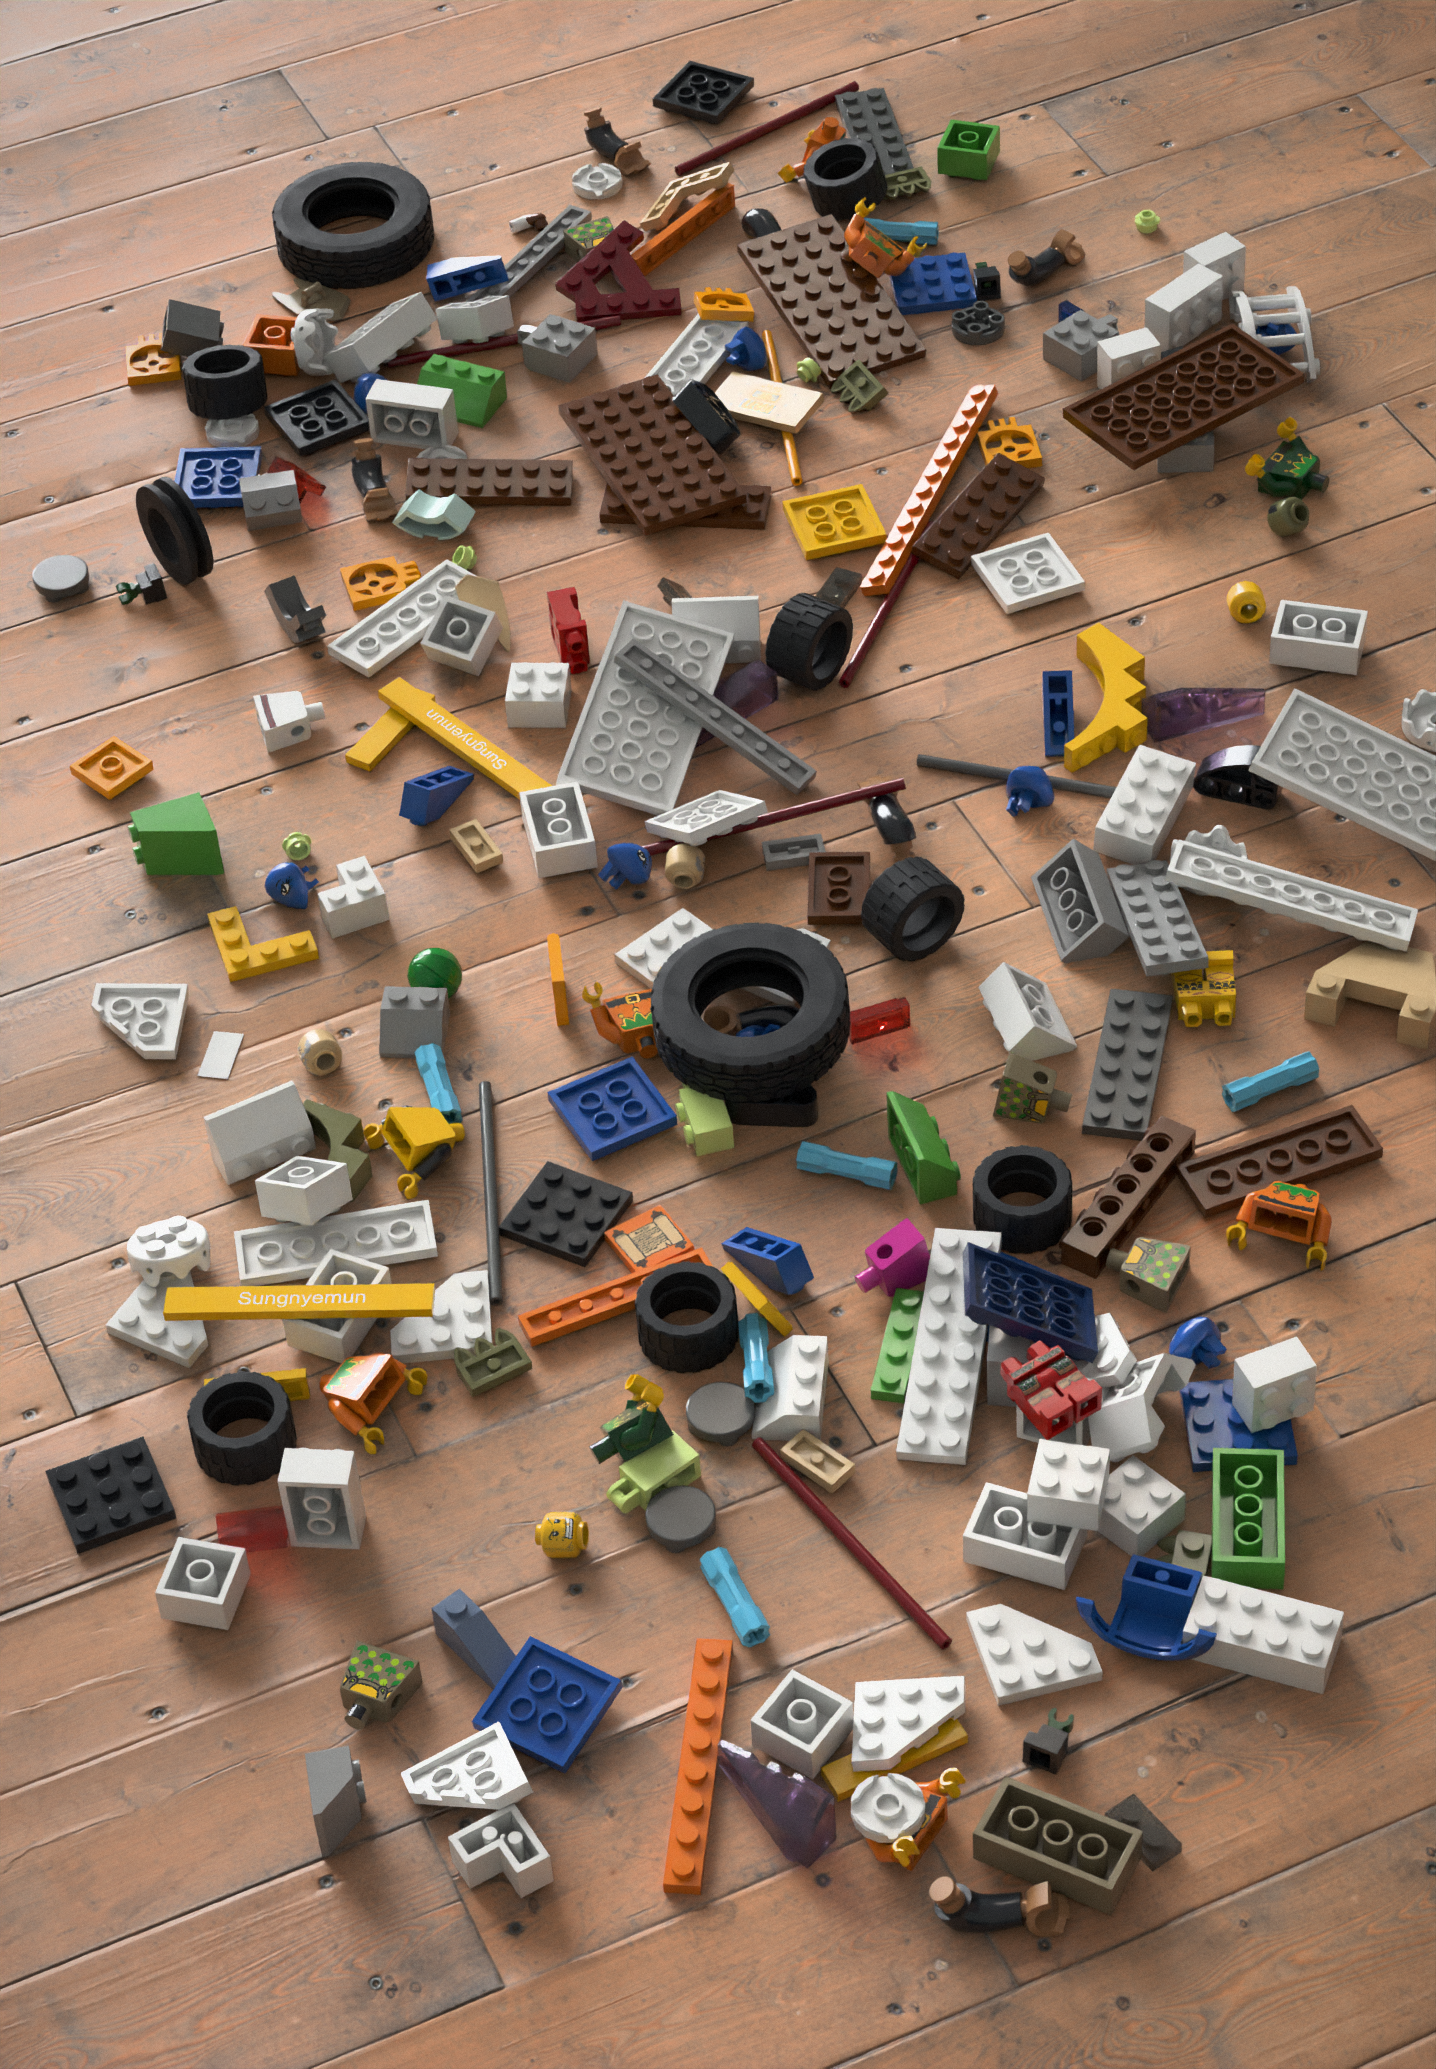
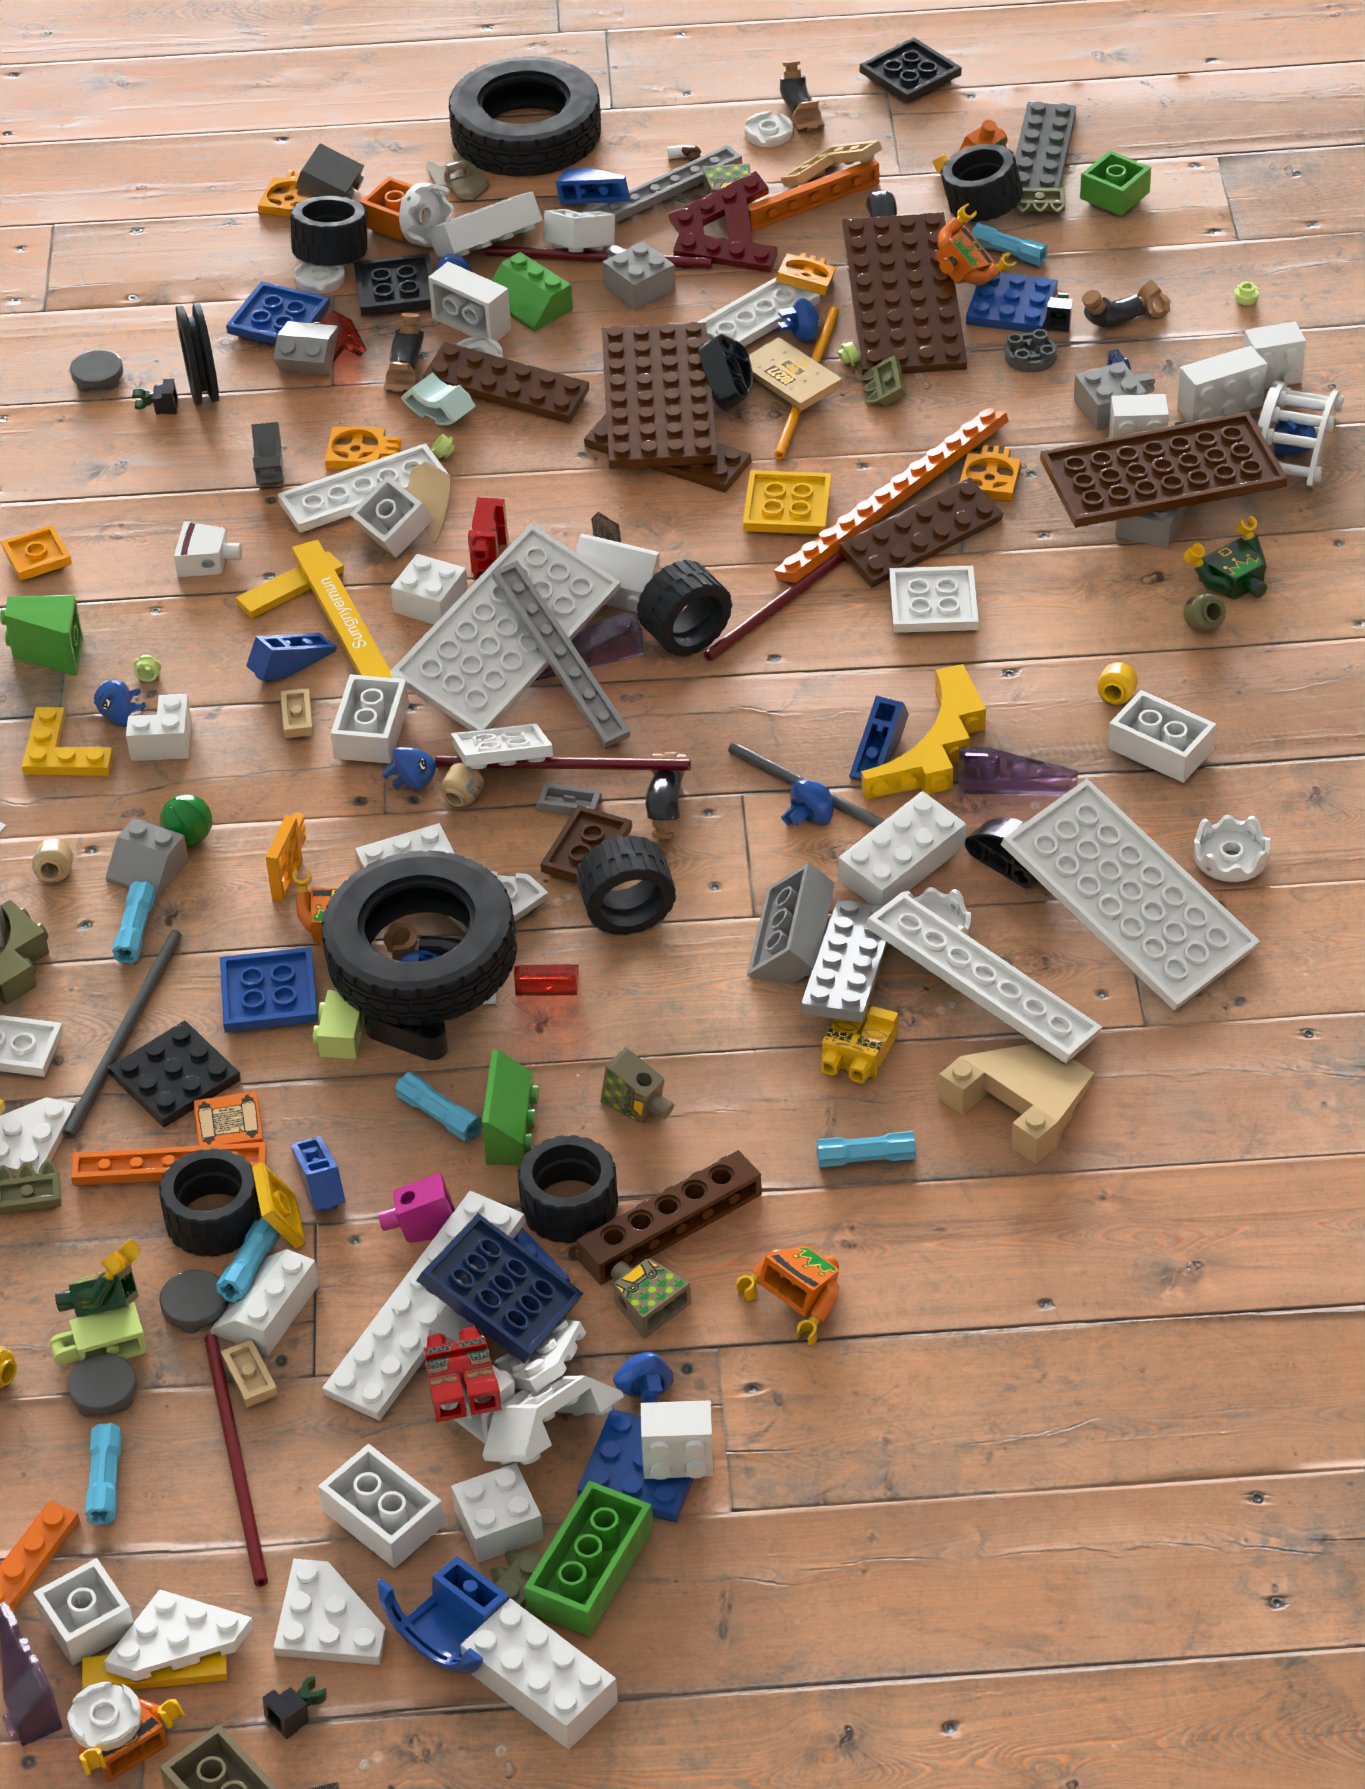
camera: 20 degrees right, 0 degrees up
(418, 1138) = (85, 968): yellow torso -> none
(764, 129) = (946, 118): dark red piece -> none
(840, 587) = (752, 568): clear smoke plate -> none
(897, 1347) = (372, 1299): bright green plate -> none
(1025, 1014) = (681, 1015): white slope -> none
(1068, 1484) = (429, 1471): white brick -> none
(1127, 1064) = (748, 1091): dark grey plate -> none
(1286, 1155) = (830, 1226): reddish brown plate -> none

